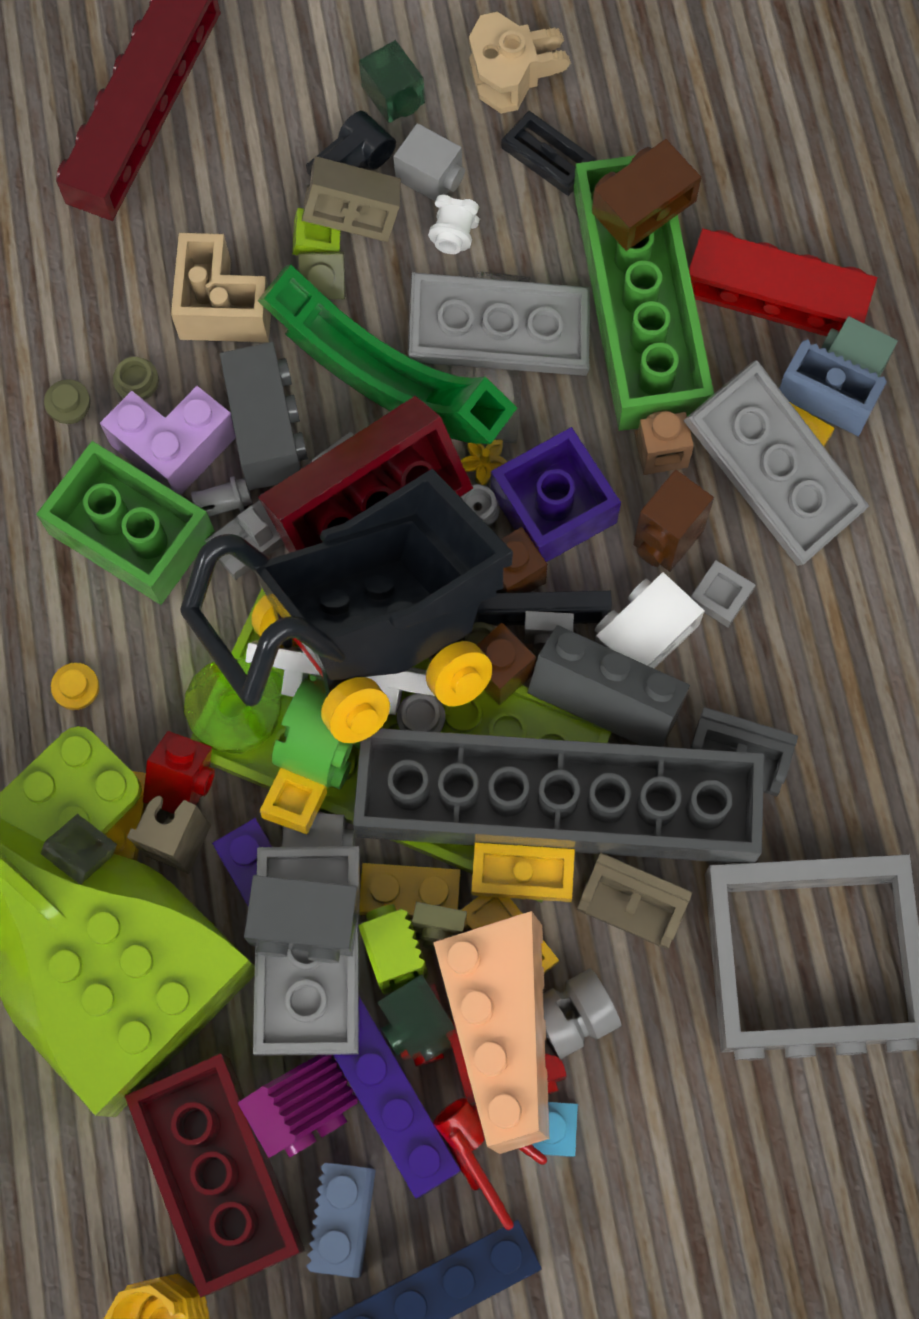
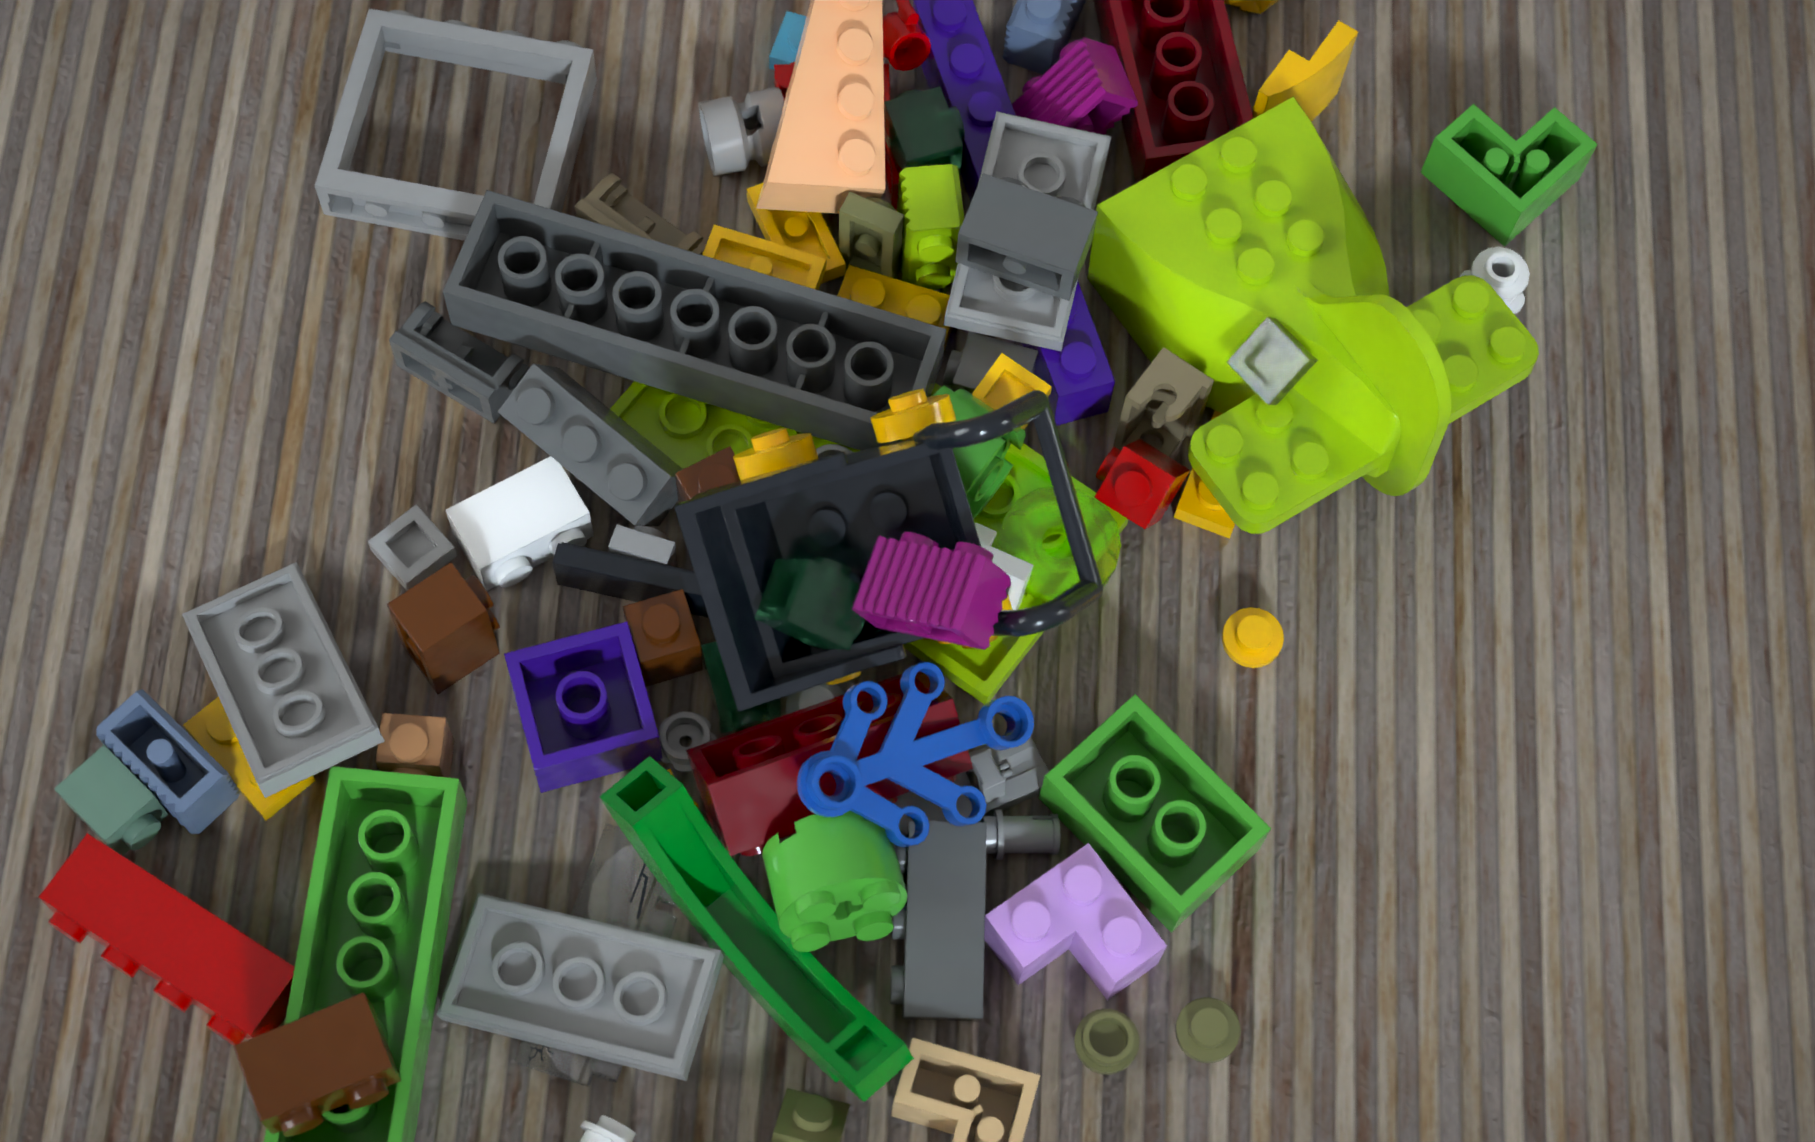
camera: 175 degrees left, 5 degrees down
(108, 1160) = (1312, 81): none -> yellow slope
(303, 472) = (903, 757): none -> blue plant
(305, 554) = (932, 590): none -> magenta brick
(337, 399) = (834, 881): none -> bright green brick
(395, 543) = (812, 602): none -> clear green brick

